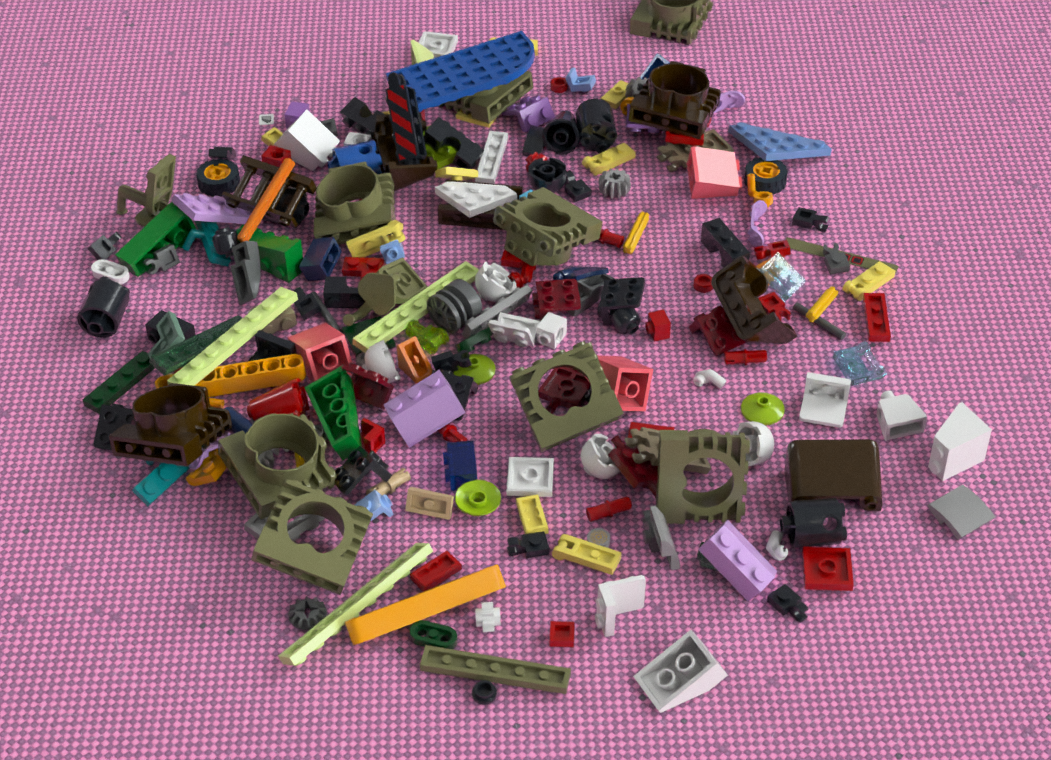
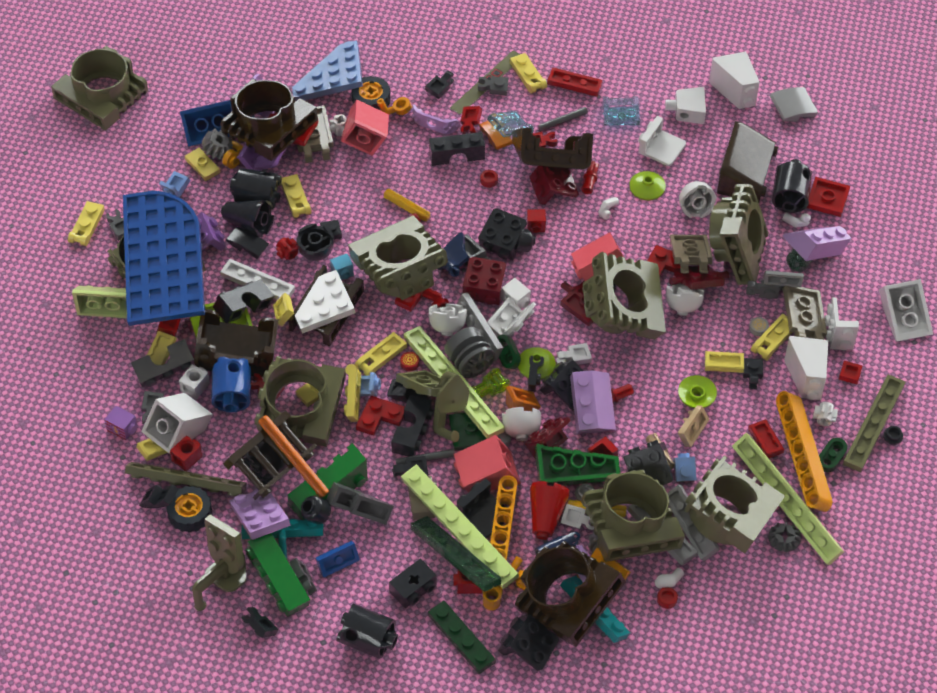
camera: 75 degrees left, 10 degrees up
(111, 270) = (299, 625): white plate -> none
(169, 332) = (442, 574): sand green plate -> none
(186, 277) = (337, 559): none -> blue plate
(202, 527) = (667, 597): none -> red tile
(222, 522) = (669, 580): none -> white arm
(252, 148) = (179, 477): none -> olive plate
(266, 119) = (101, 454): white sticker -> none
(320, 259) = (364, 441): dark blue brick -> none
(405, 121) = (221, 321): black hinge -> none
(436, 254) = (381, 354): none -> light yellow plate
(436, 274) = (409, 361): none -> red tile
(439, 43) = (55, 283): white plate -> none
(461, 463) = (657, 394): clear blue brick -> none
(491, 393) = (579, 353): none -> white plate
(530, 476) = (681, 352): white plate -> none
(543, 584) = (807, 365): none -> white slope
(608, 508) = (731, 310): red axle -> none
(614, 183) = (338, 200): light grey gear -> none
(626, 563) = (805, 312): none -> dark tan tile
(788, 601) = (855, 230): black plate -> none
(821, 304) = (550, 109): yellow axle -> none

